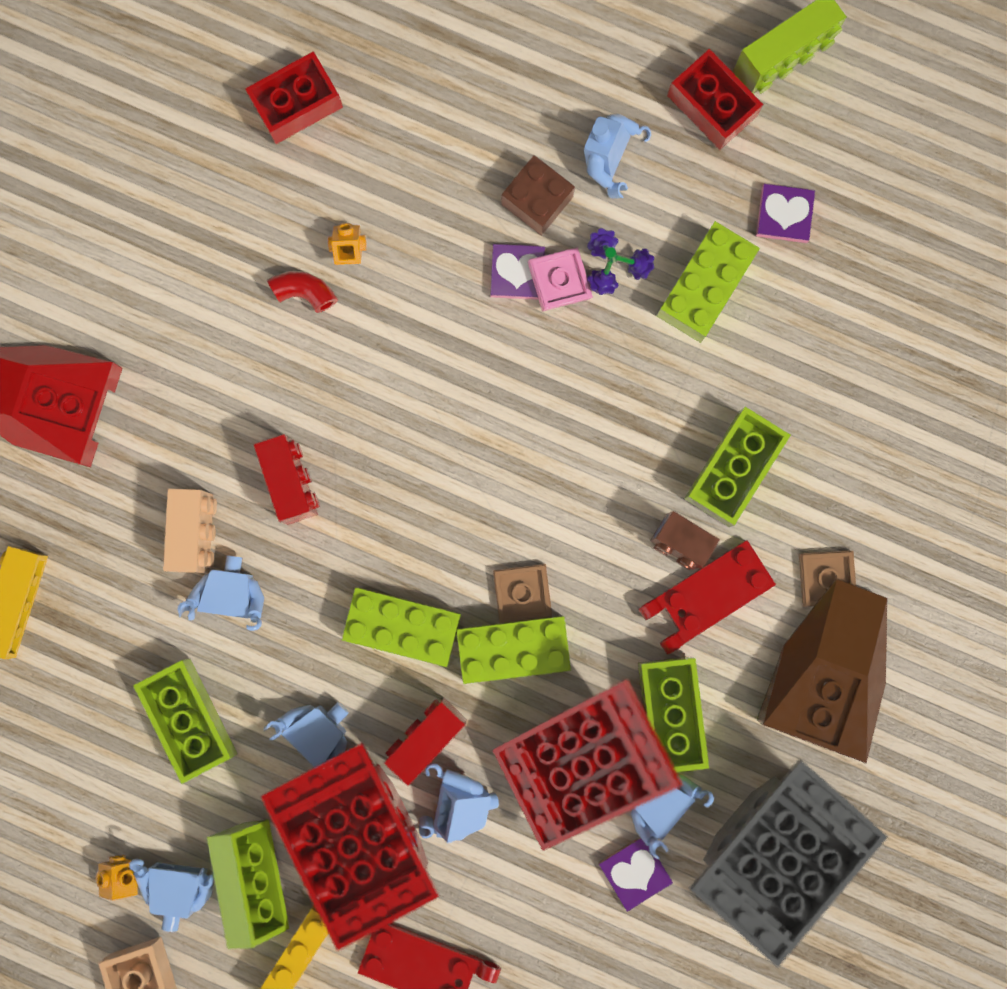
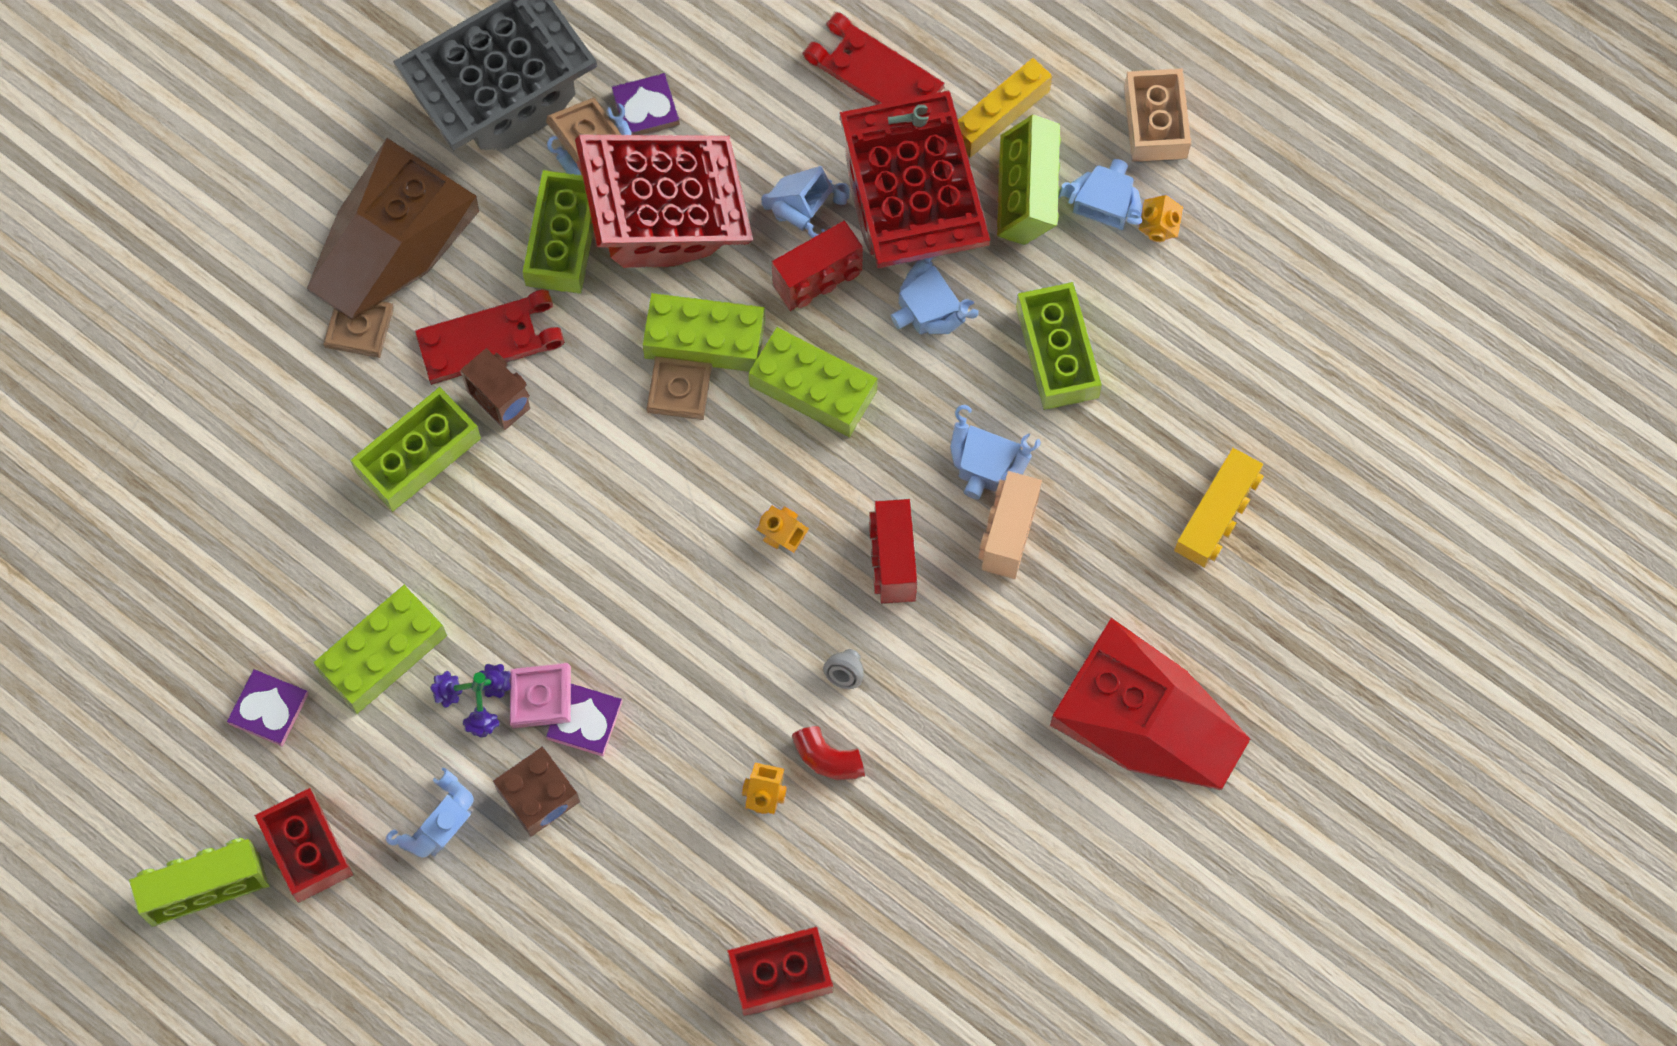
camera: 165 degrees left, 15 degrees down
(306, 369) = (844, 669): none -> light grey brick
(366, 908) = (912, 117): none -> sand green hand
(393, 478) = (782, 528): none -> light orange brick
(682, 821) = (580, 119): none -> medium nougat tile

